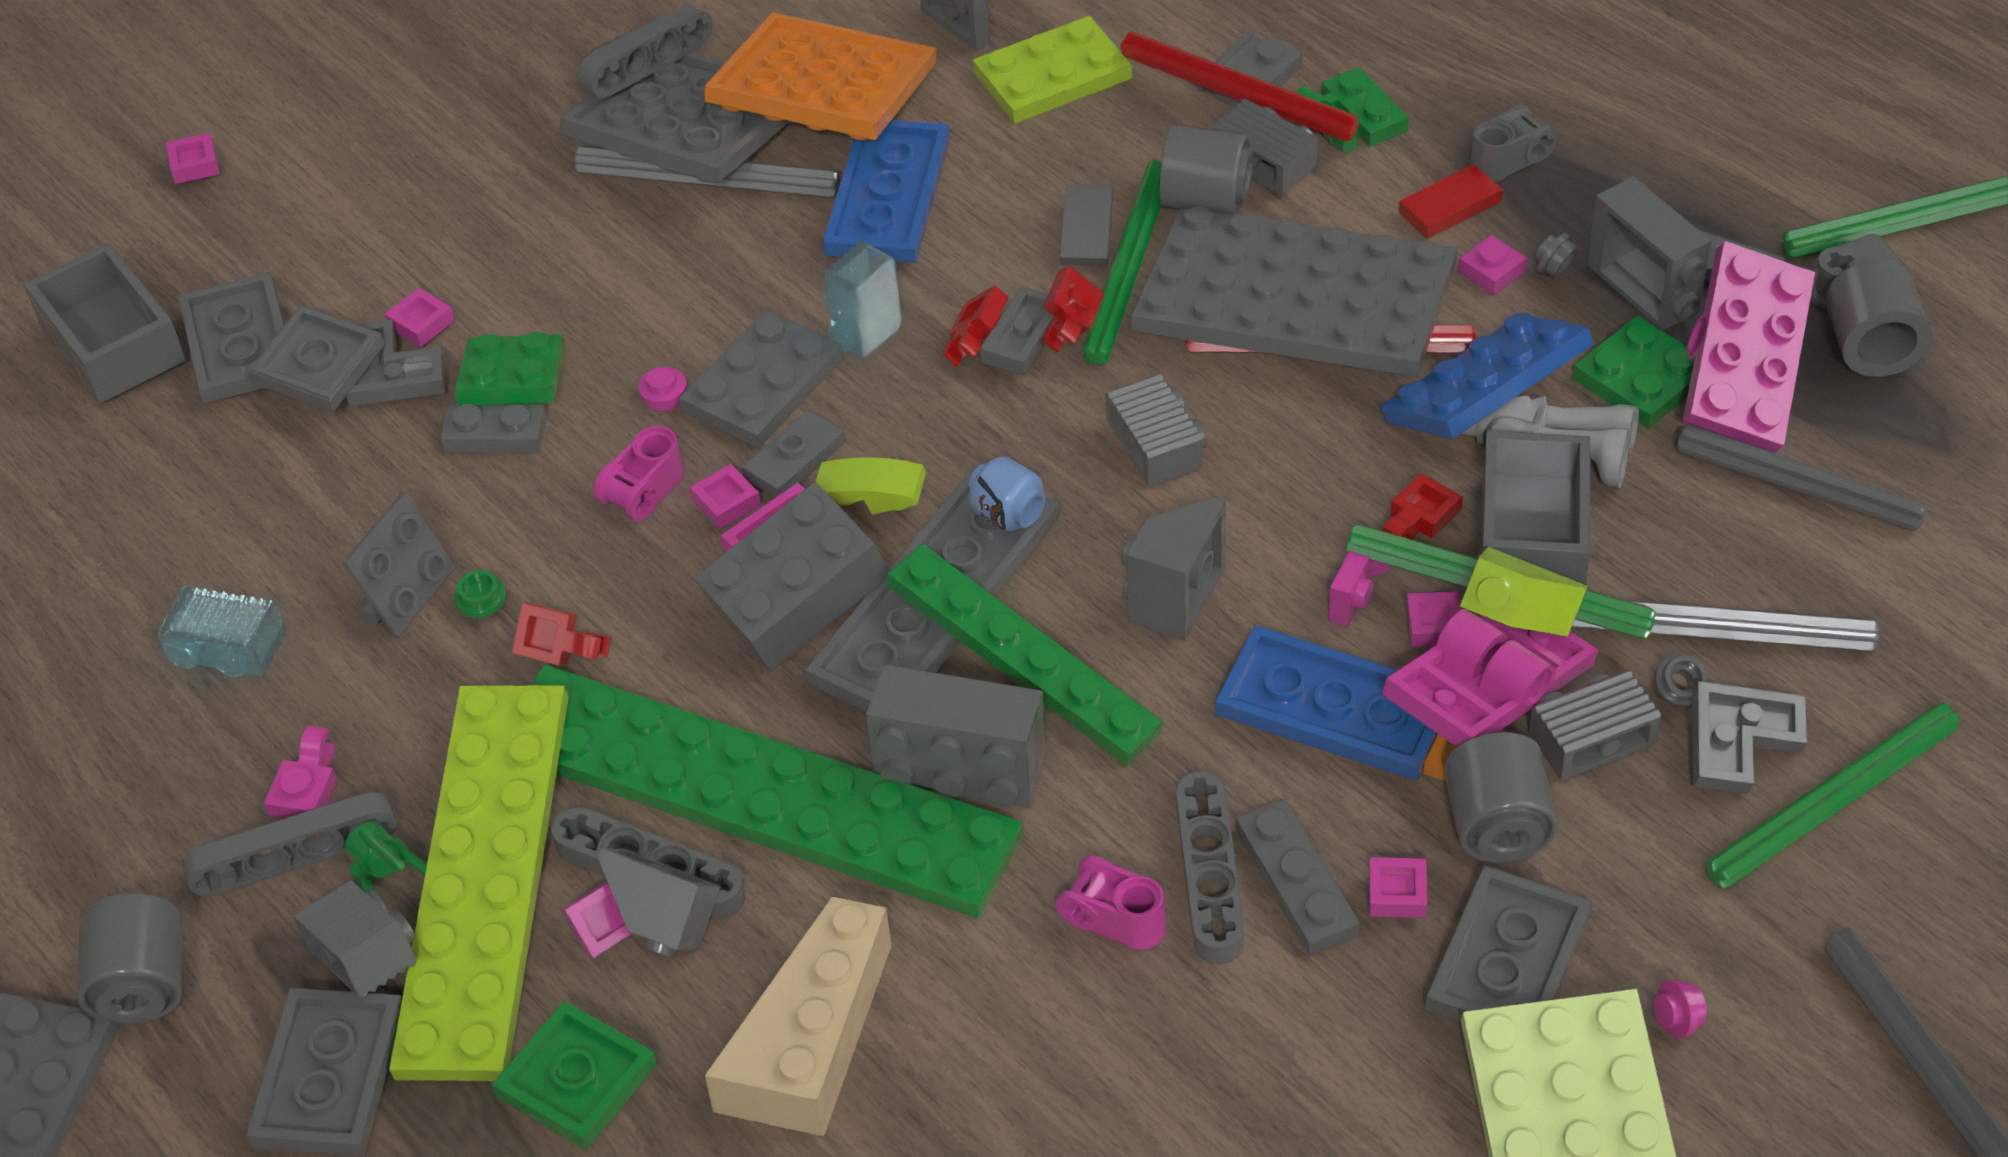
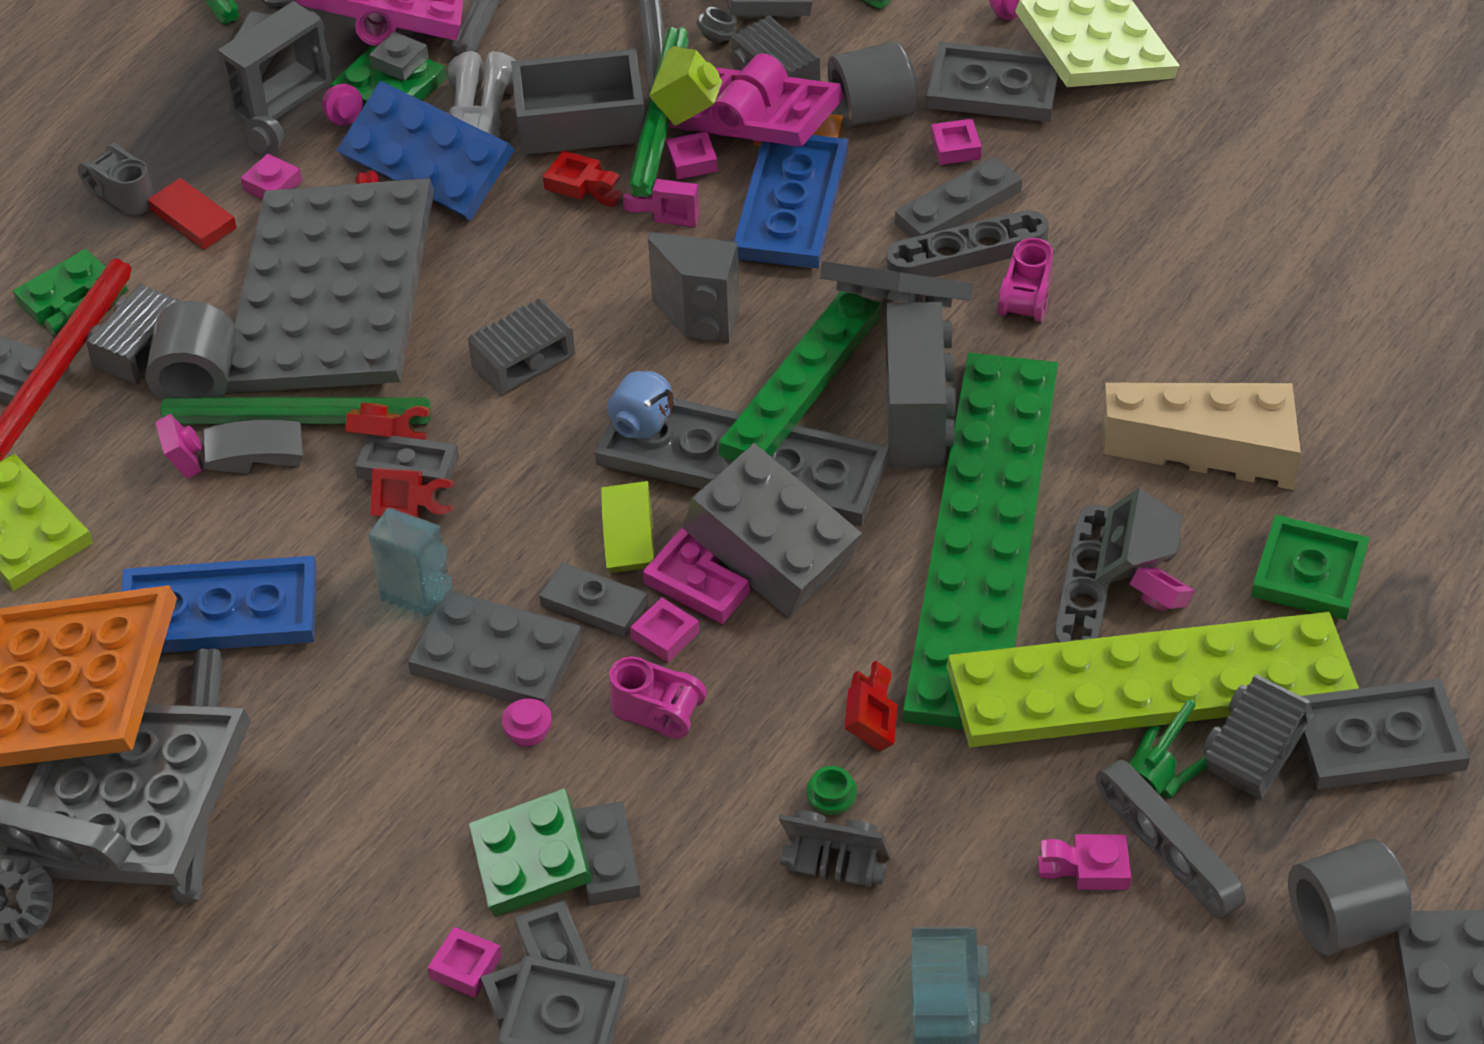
camera: 105 degrees left, 0 degrees up
(1096, 164) = (180, 445): none -> dark pink plate
(1106, 732) = (895, 284): none -> dark grey plate
(1599, 316) = (342, 104): none -> dark pink plate
(1655, 362) = (398, 56): none -> dark grey plate

